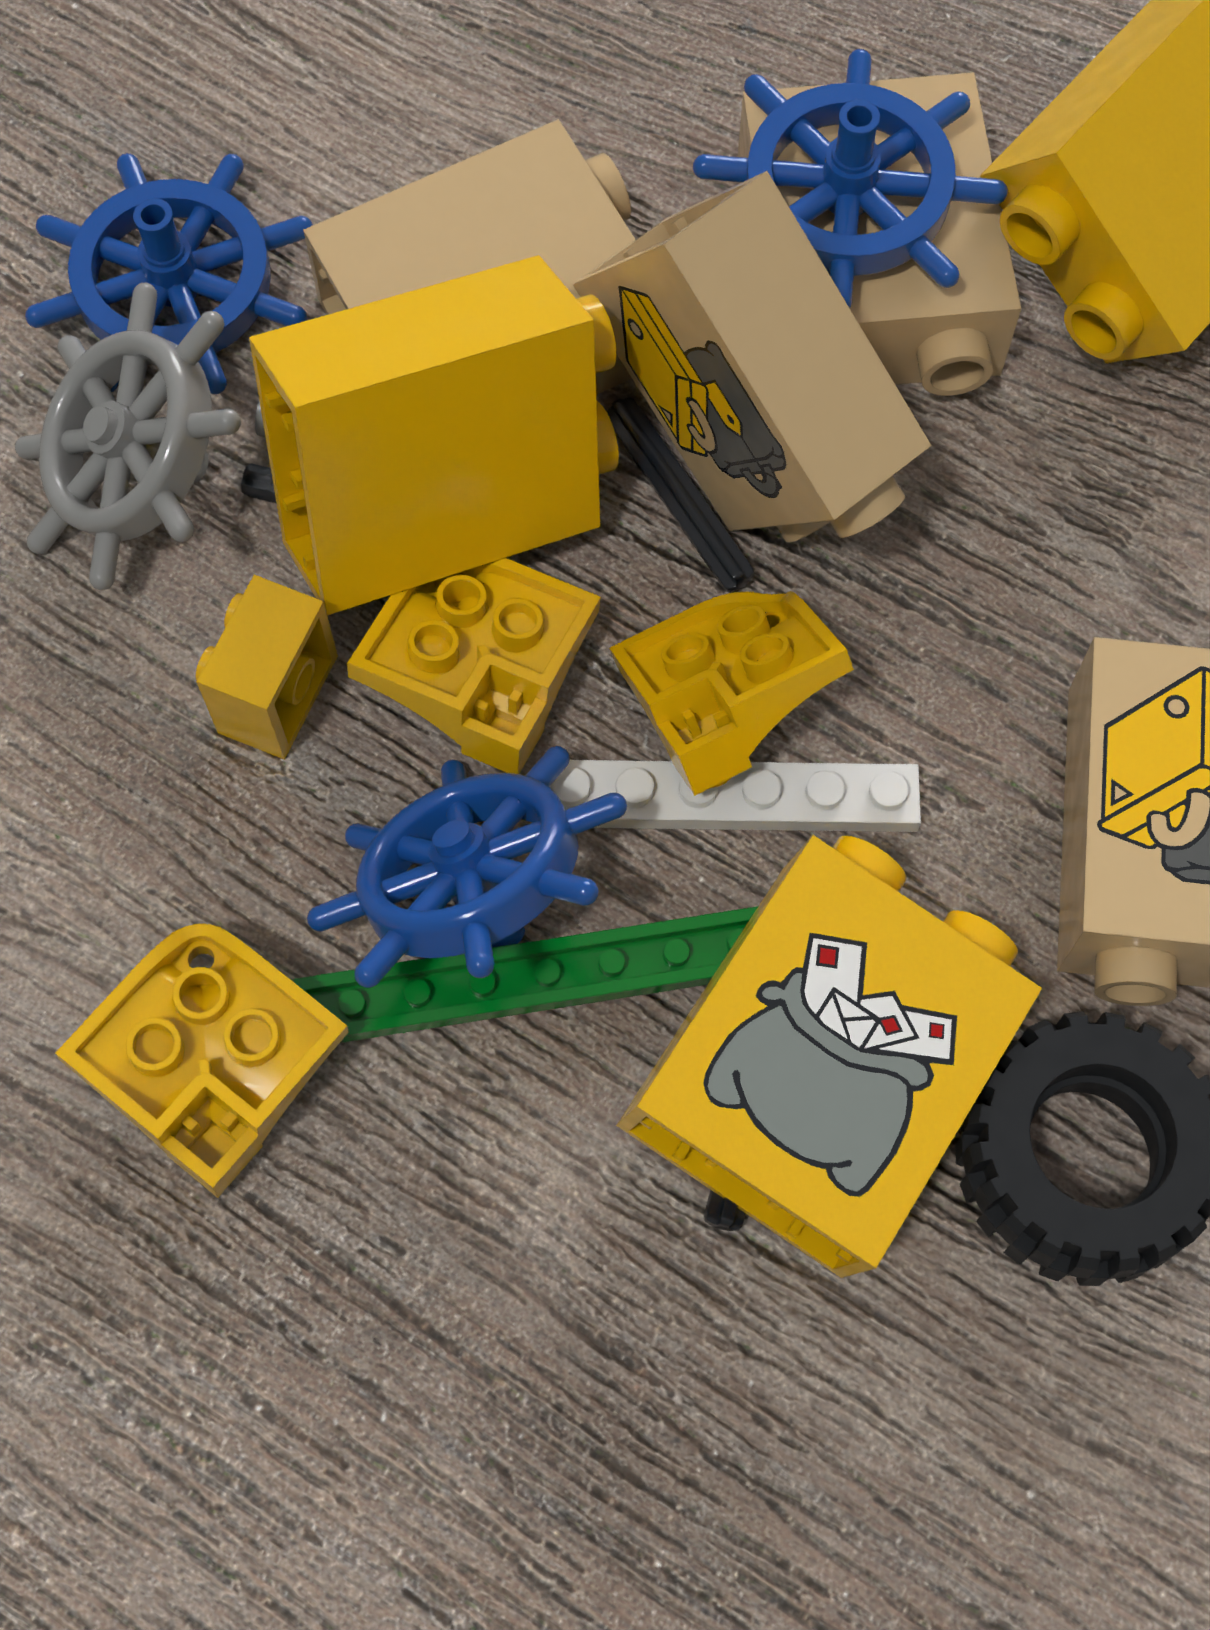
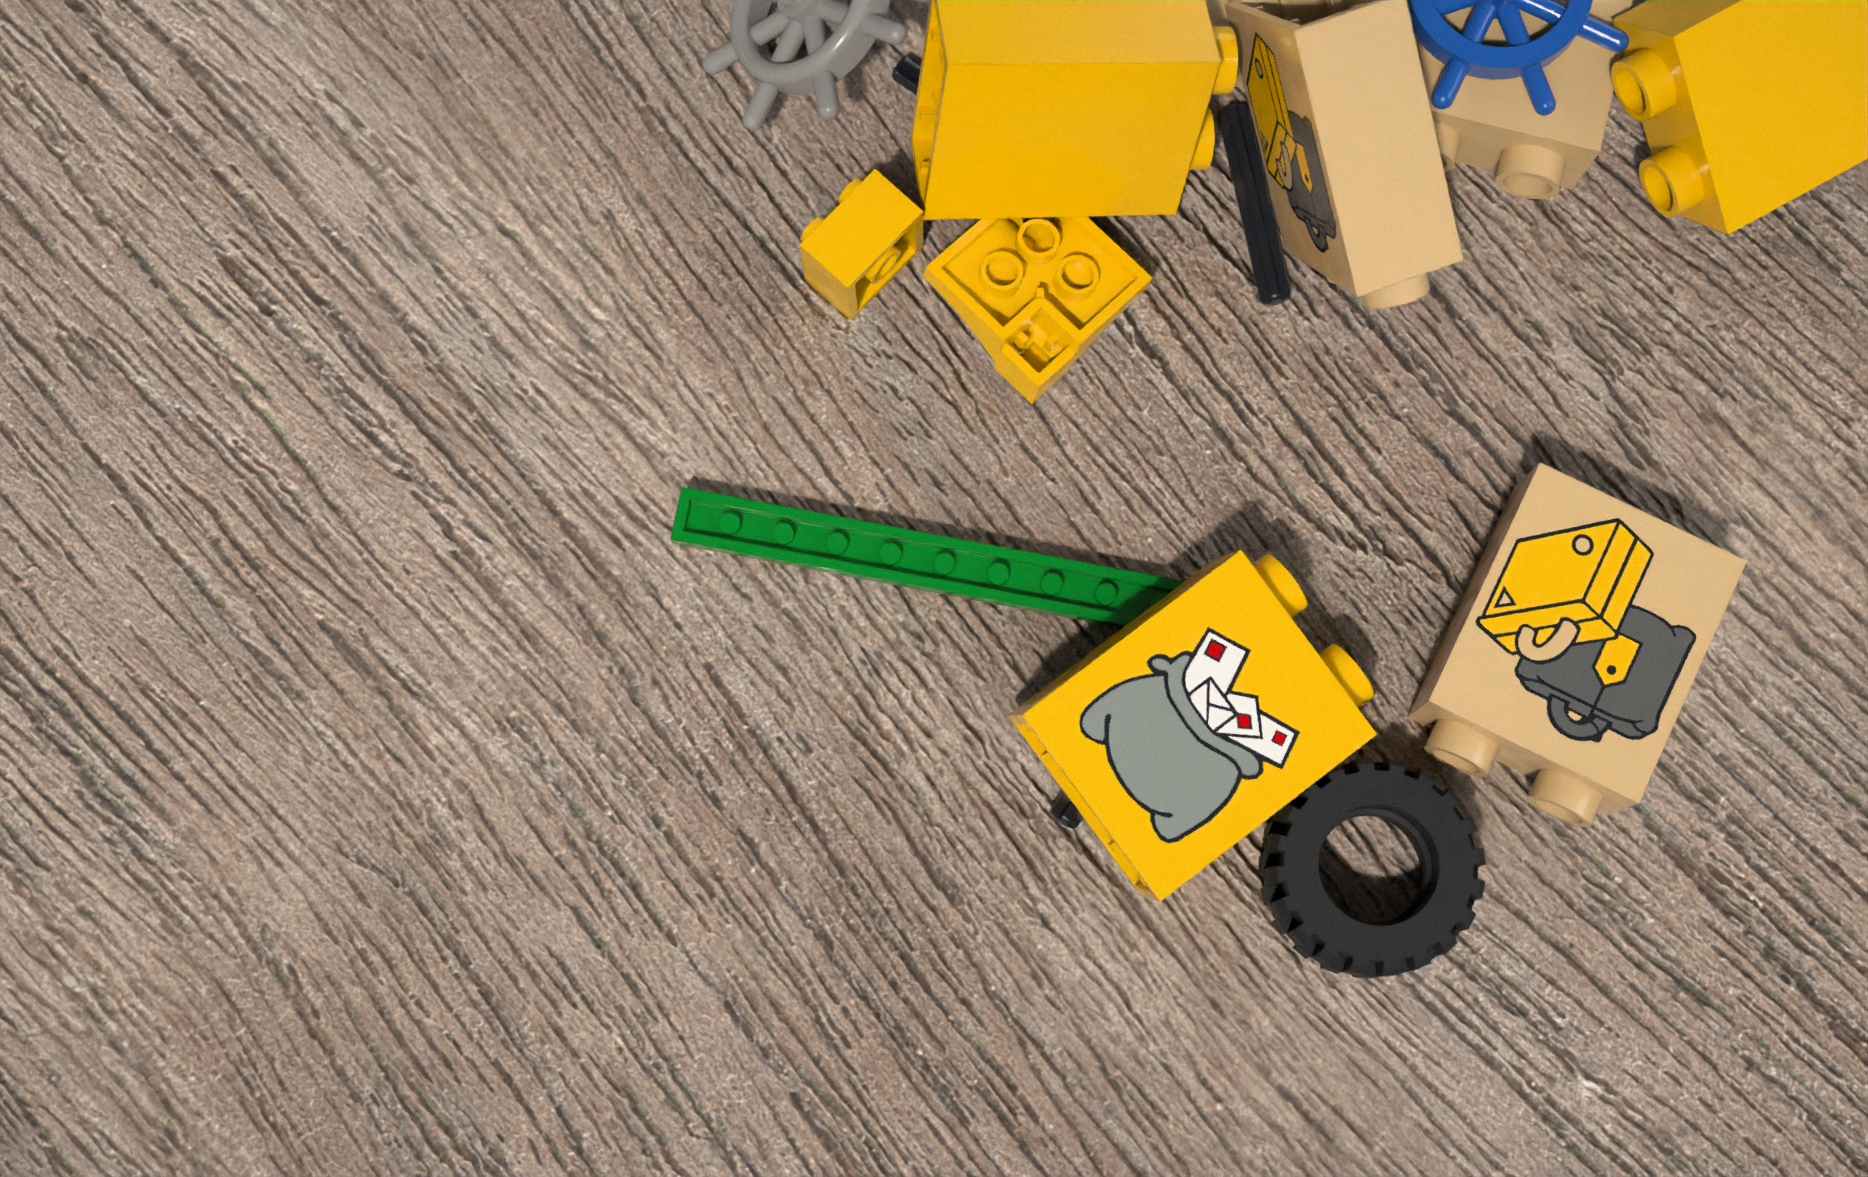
camera: 20 degrees right, 10 degrees up
(203, 1051) = (710, 543): yellow slope -> none
(468, 865) = (963, 470): blue piece -> none
(727, 677) = (1231, 383): yellow slope -> none
(757, 799) = (1198, 479): white plate -> none

